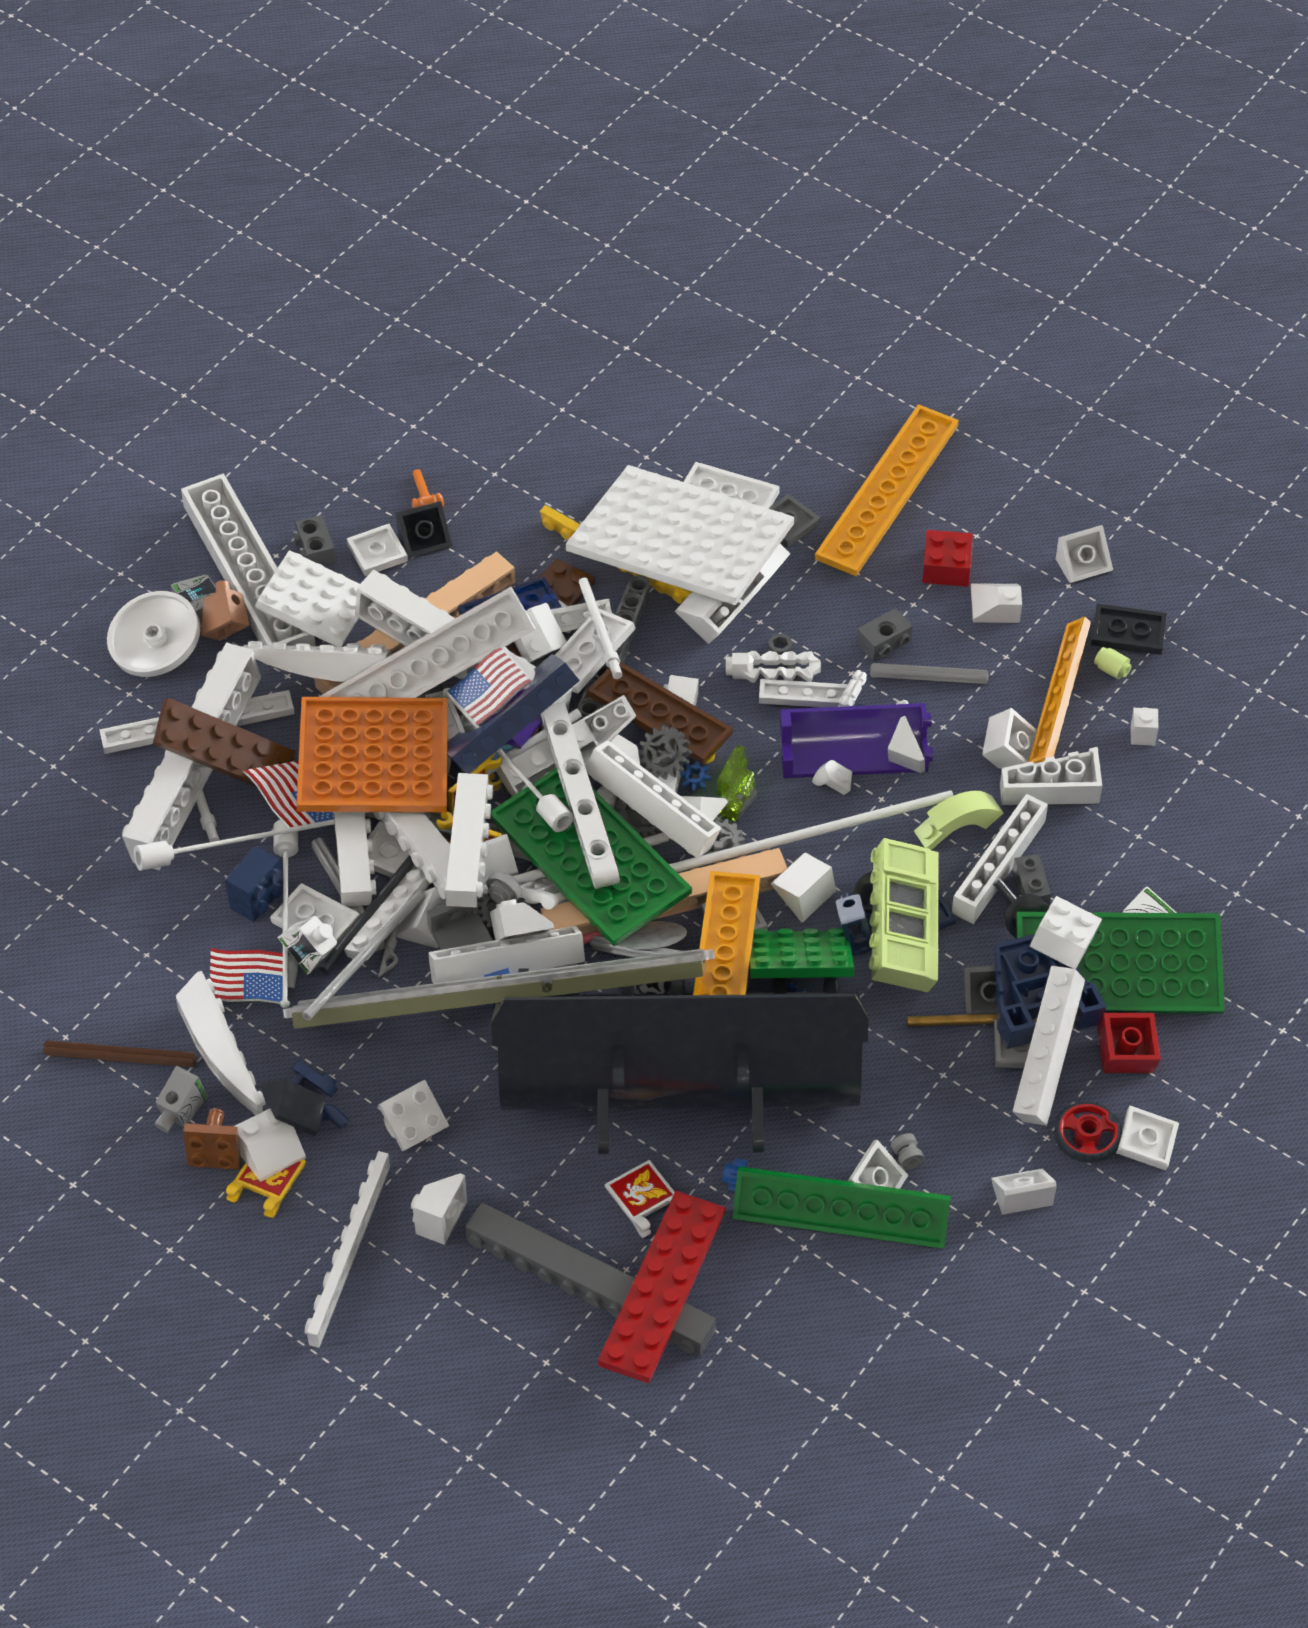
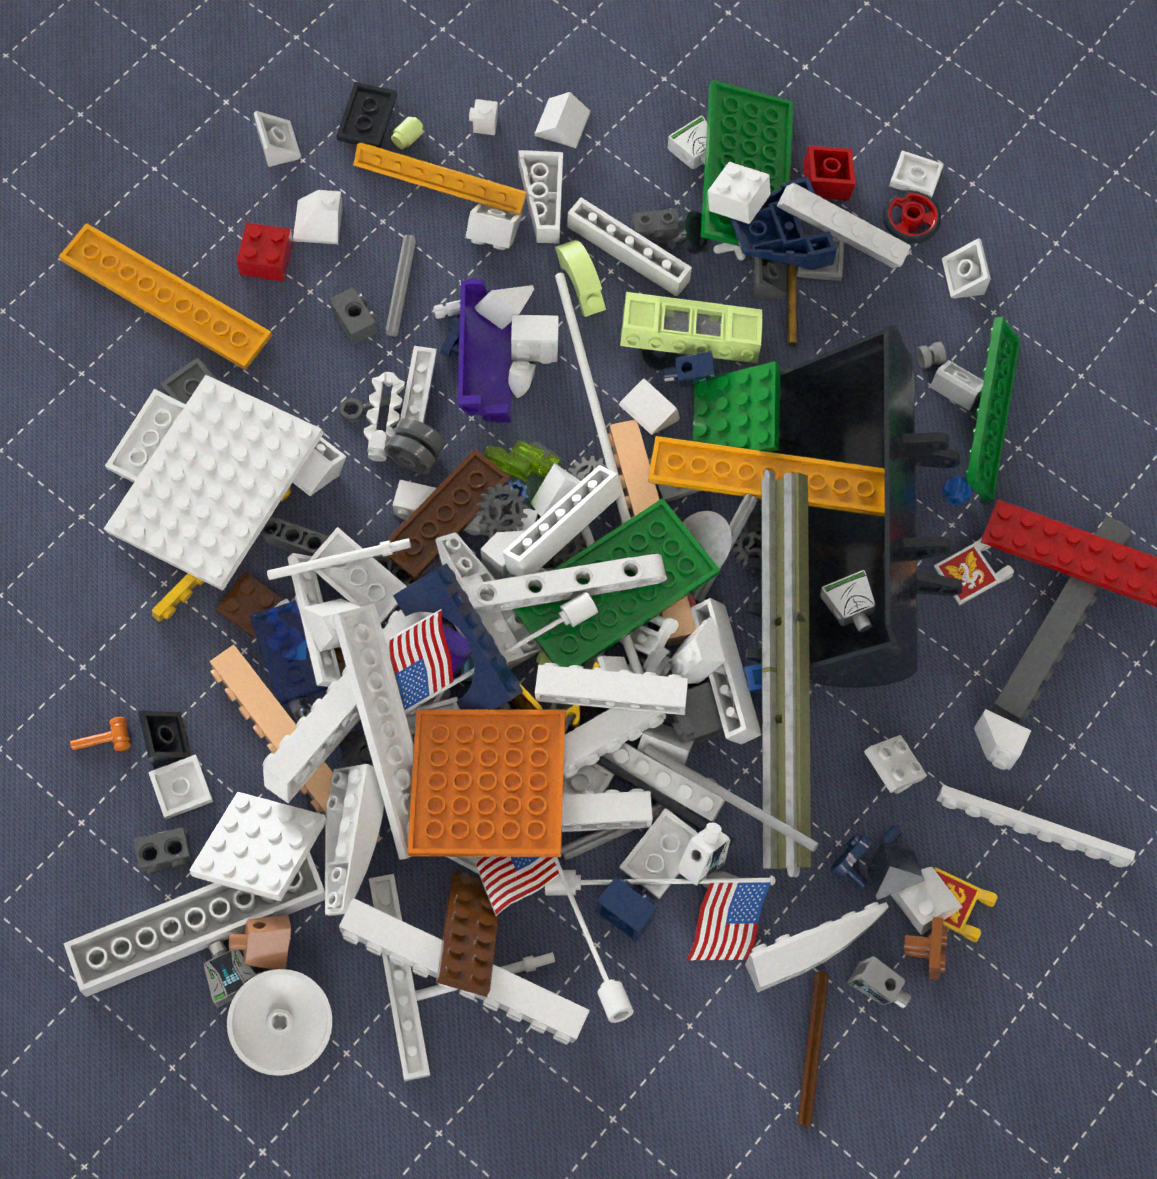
camera: 90 degrees left, 15 degrees up
(735, 686) = (414, 446): none -> dark grey wheel
(853, 689) = (425, 347): white axle -> none
(871, 777) = (534, 338): none -> white brick
(1156, 801) = (563, 120): none -> white slope

